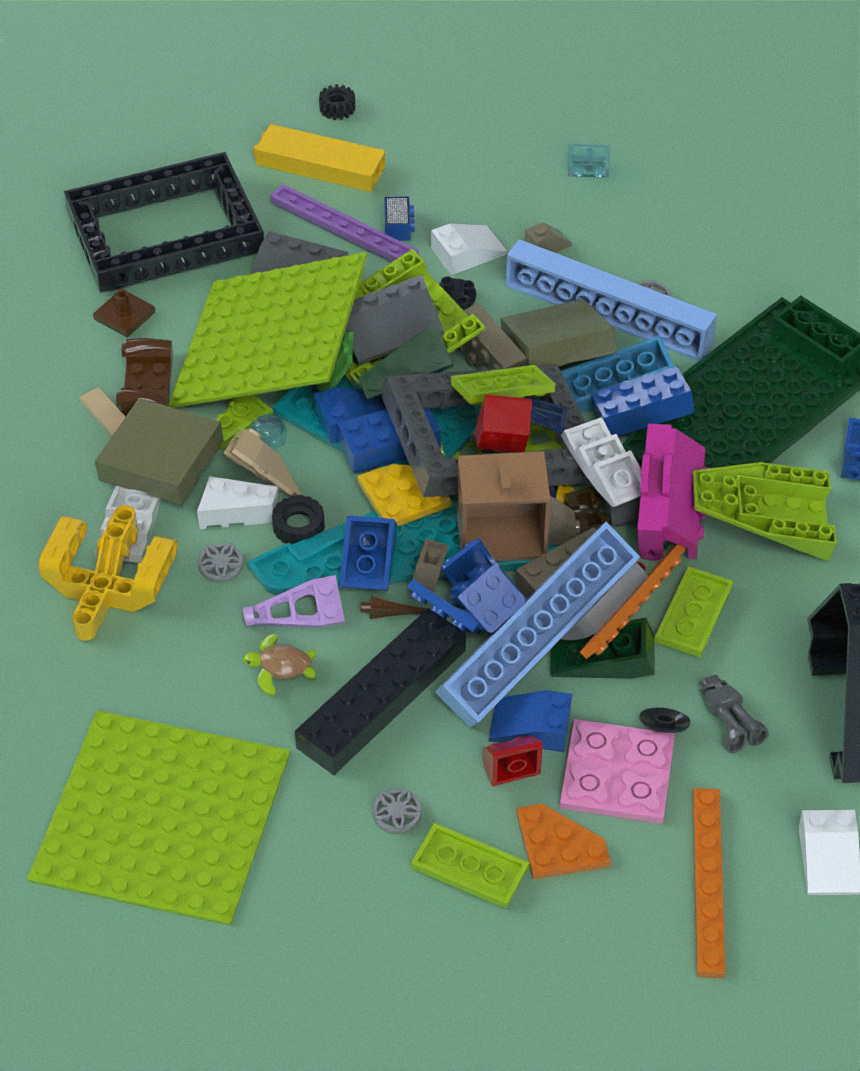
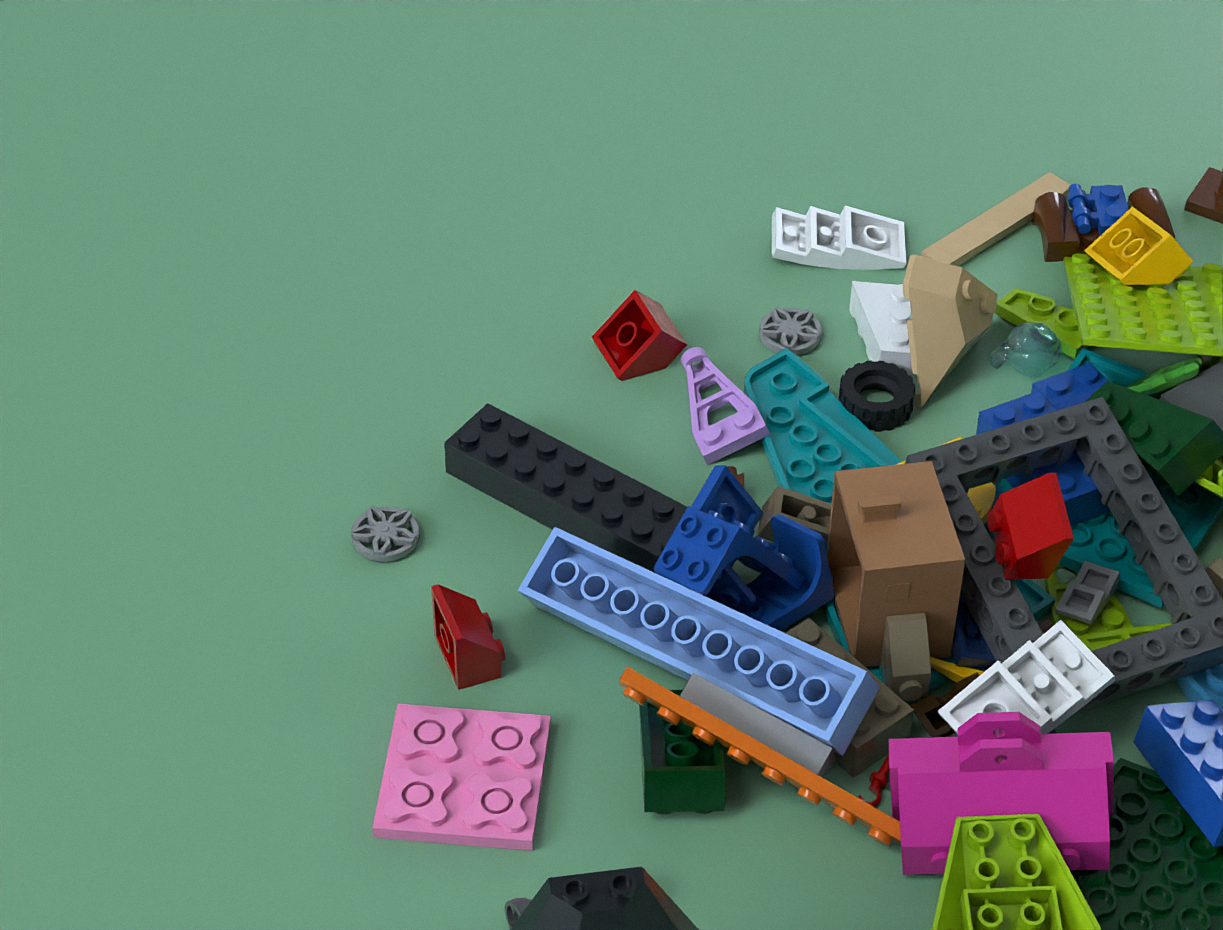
camera: 85 degrees right, 5 degrees down
(104, 586) = (747, 233): yellow piece -> none
(137, 372) = (1106, 202): none -> blue plate
(159, 451) = (958, 227): olive tile -> none
(161, 817) = (376, 323): lime baseplate -> none
(200, 355) = (1139, 251): none -> yellow slope
(220, 646) = (638, 338): none -> red slope
(279, 662) = (618, 395): animal -> none
(368, 552) = (810, 452): blue slope -> none
(470, 865) = (289, 610): lime plate -> none
(504, 382) = (1135, 536): lime plate -> none
(536, 714) = (542, 671): blue slope -> none
(548, 414) = (1098, 601): dark blue wing -> none
(559, 844) = (332, 708): orange plate -> none
(664, 720) = (551, 822): black dish -> none
(694, 612) = (782, 866): lime plate -> none
(708, 883) = (264, 890): orange plate -> none

